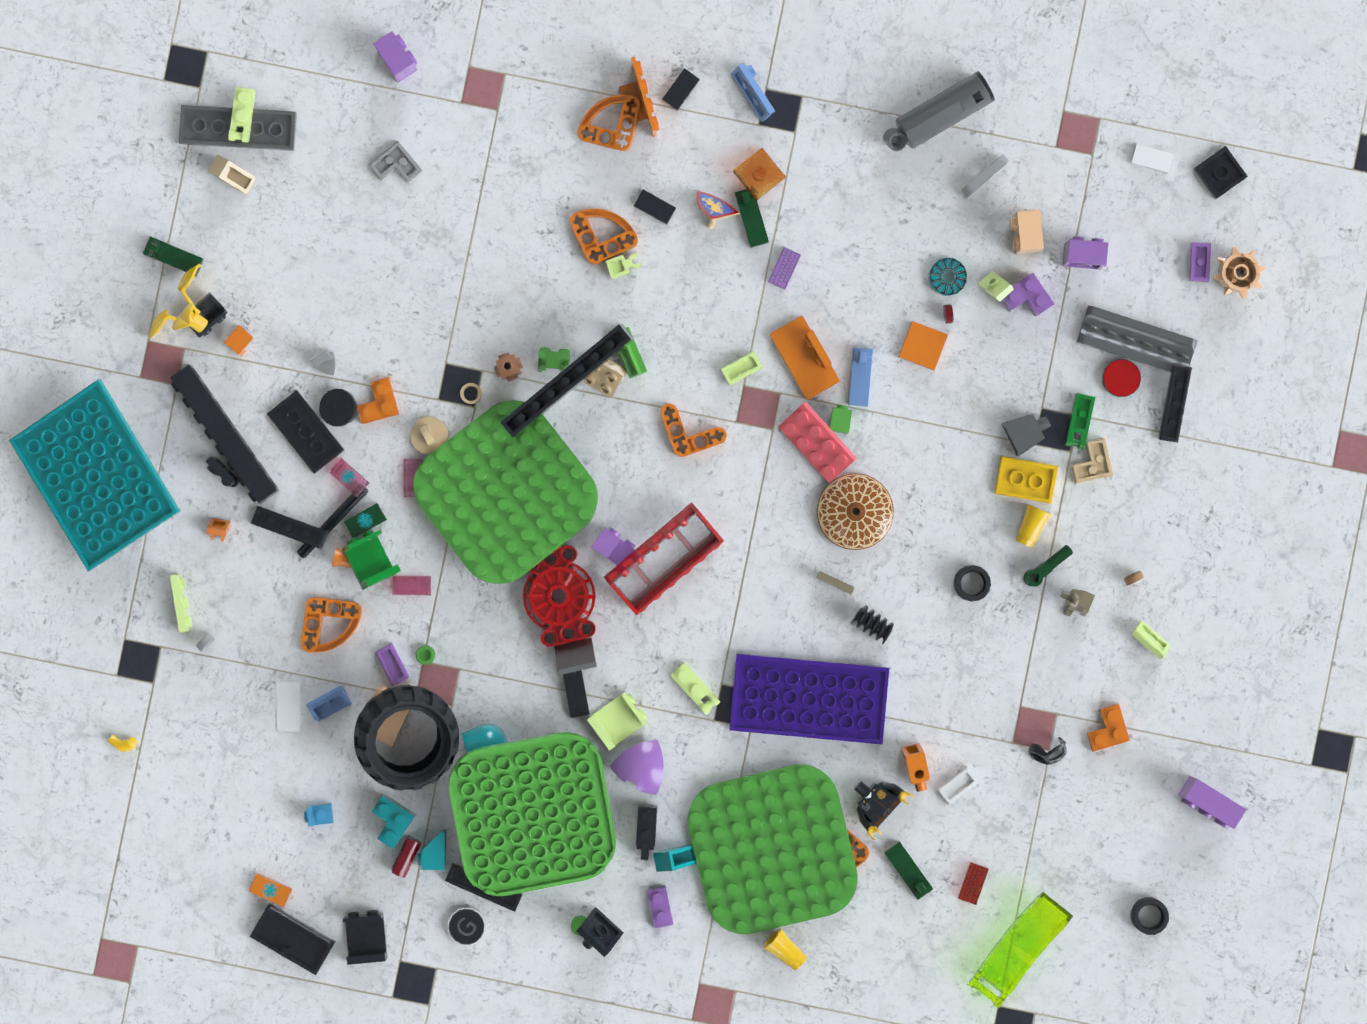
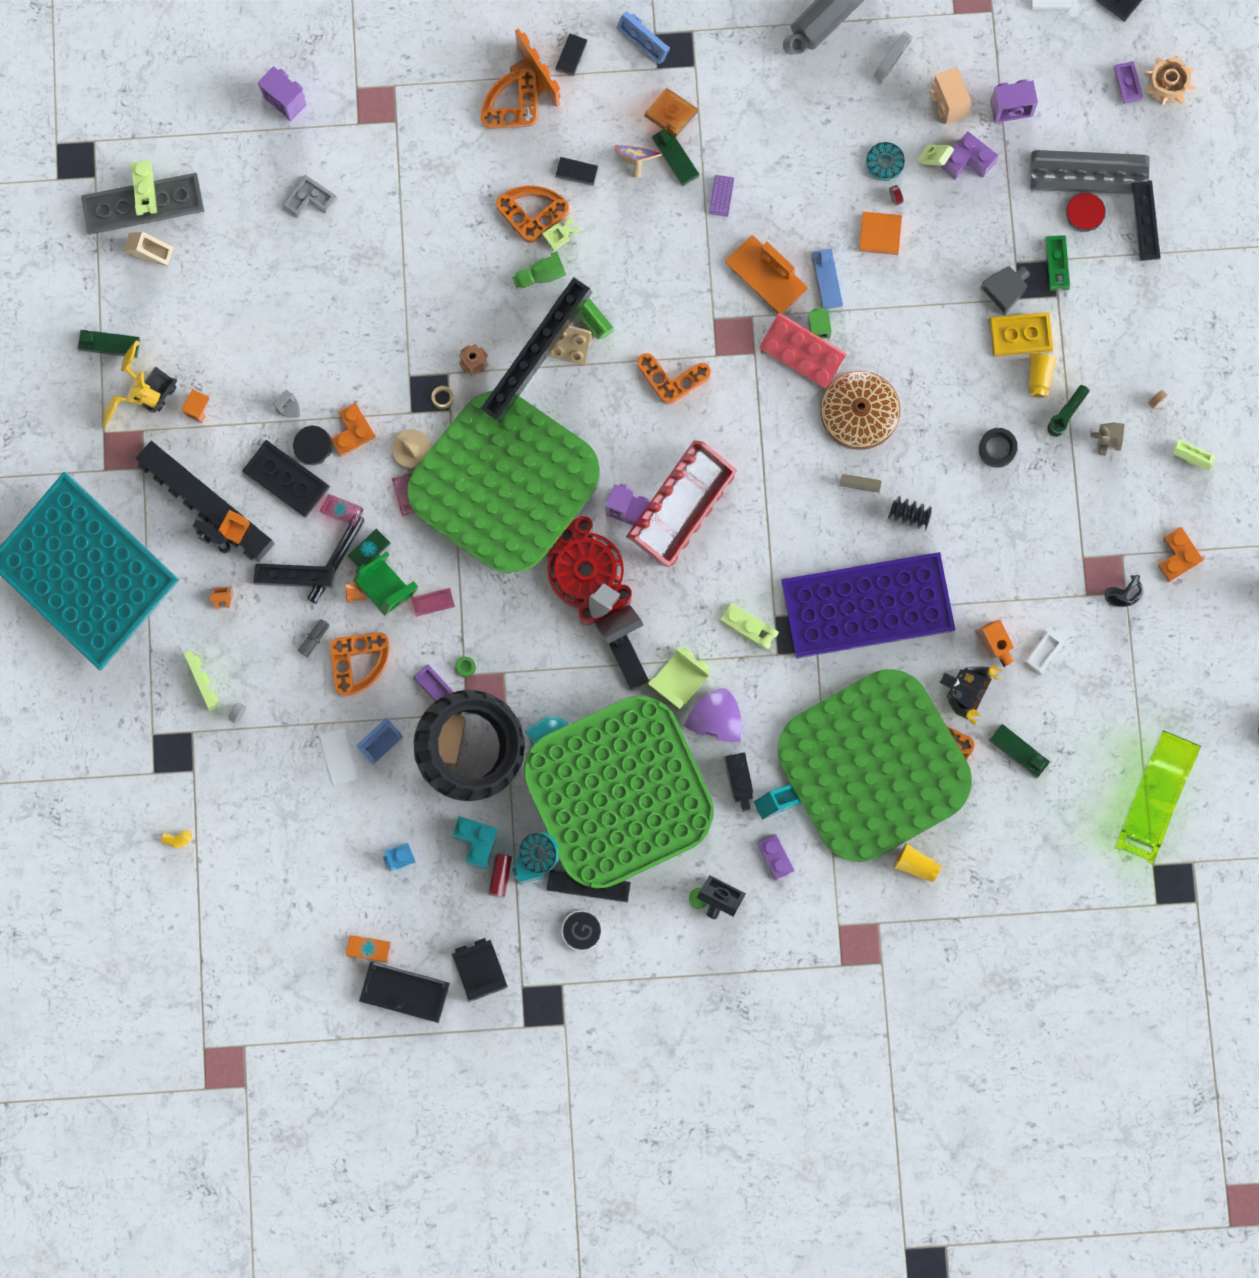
camera: 10 degrees left, 10 degrees down
(244, 470) = (234, 526): none -> orange panel
(293, 590) = (314, 638): none -> dark grey axle
(436, 855) = (531, 860): none -> tile
(552, 359) = (514, 341): bright green piece -> none
(565, 633) = (602, 601): none -> light grey tile
(594, 298) = (542, 271): none -> bright green piece
(741, 368) = (706, 301): yellowish green plate -> none
(973, 883) = (1089, 746): clear red tile -> none
(1098, 464) = (1087, 301): tan tile -> none

